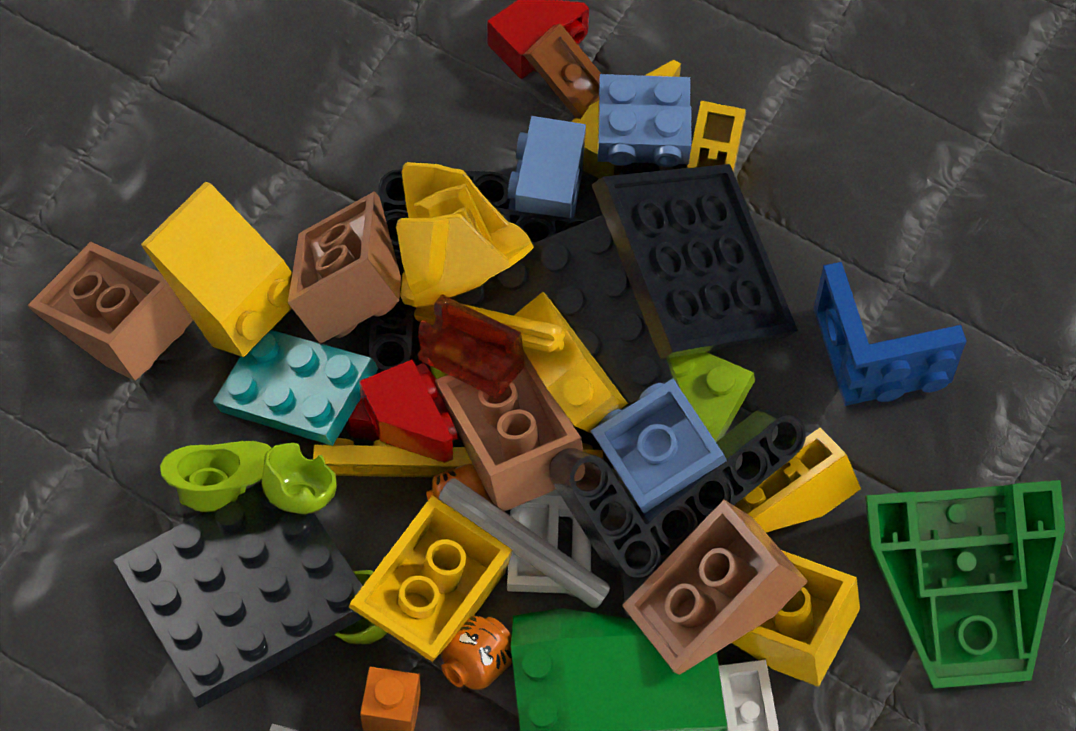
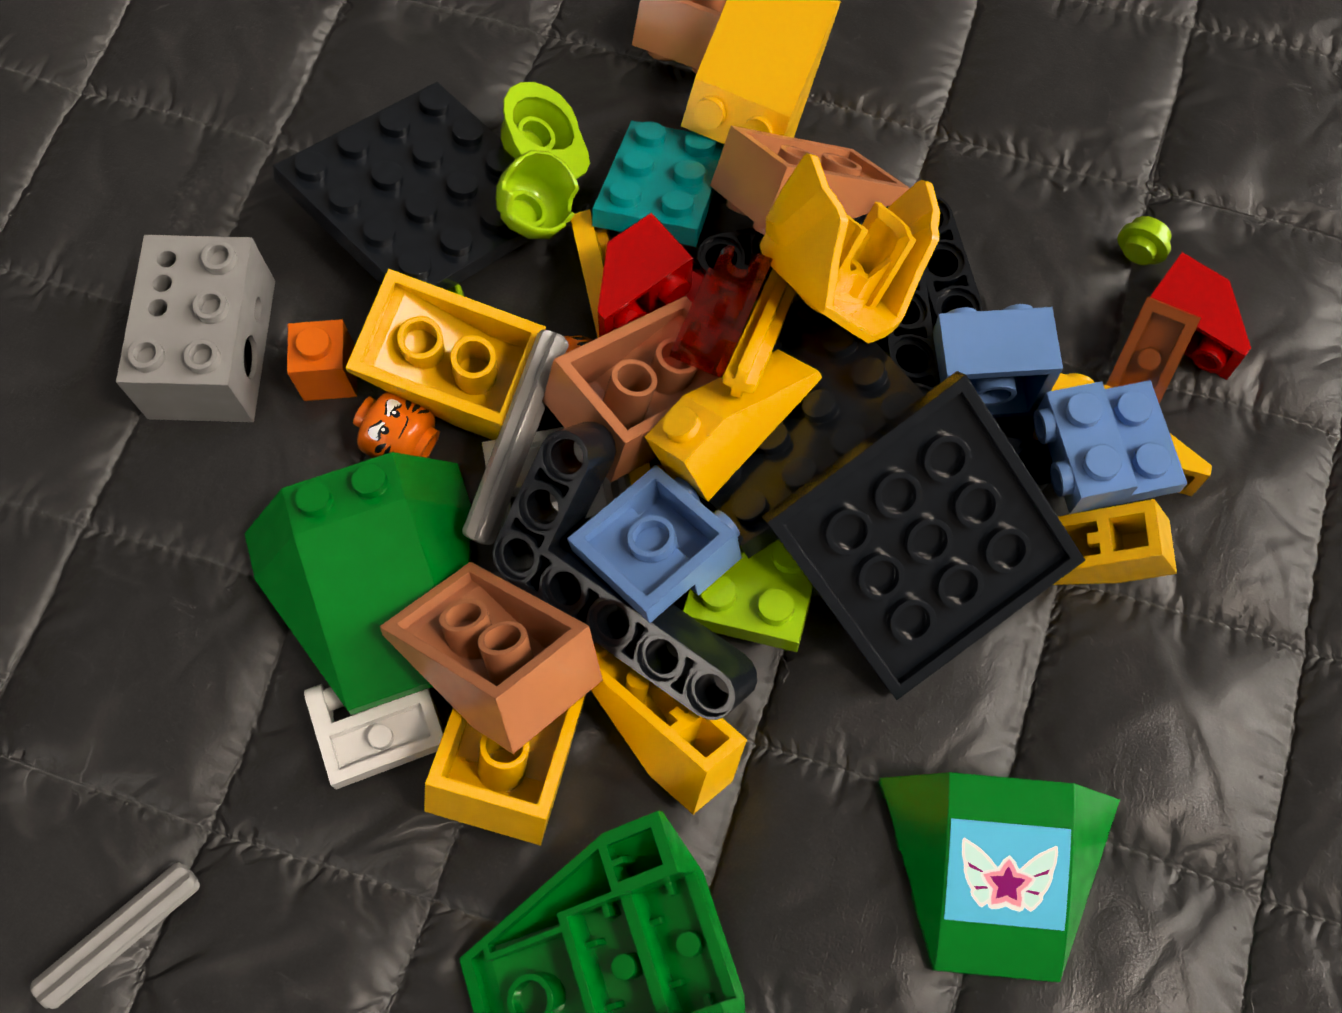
camera: 80 degrees right, 5 degrees up
(459, 45) = (1145, 240): none -> lime plate
(881, 368) = (856, 810): blue bracket -> none
(940, 284) = (998, 867): none -> green wedge

